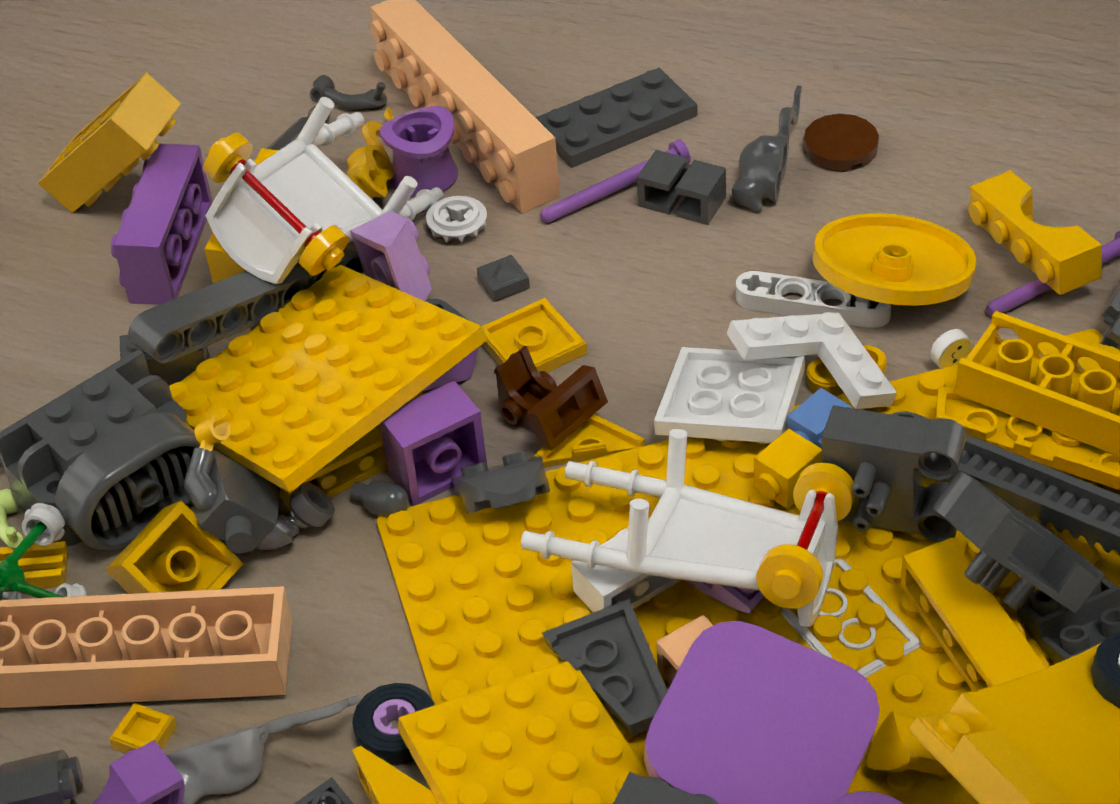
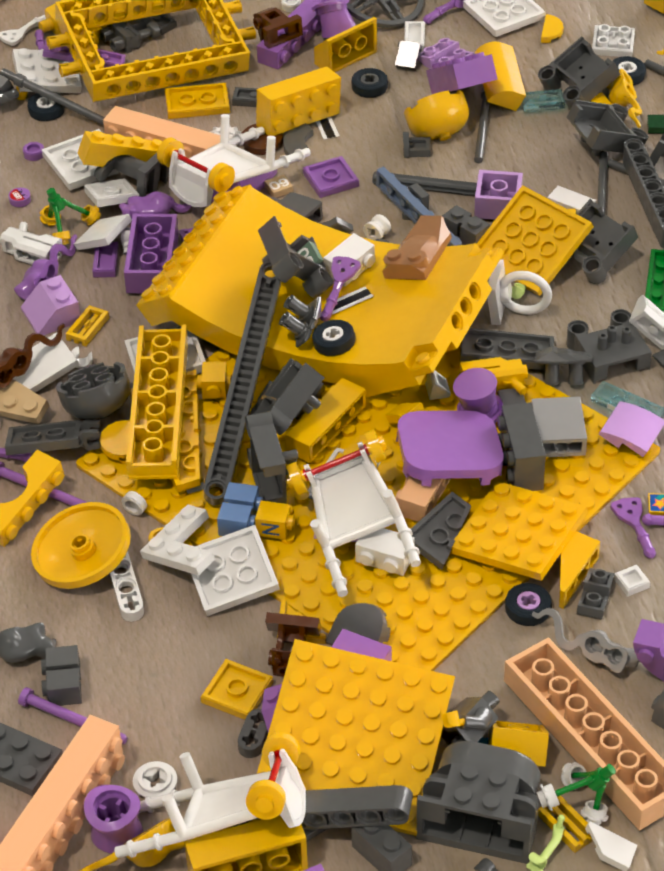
camera: 125 degrees left, 0 degrees up
(141, 727) = (617, 697): yellow tile -> none
(392, 255) = (237, 753): lavender slope -> none
(503, 277) = (193, 729): dark grey tile -> none

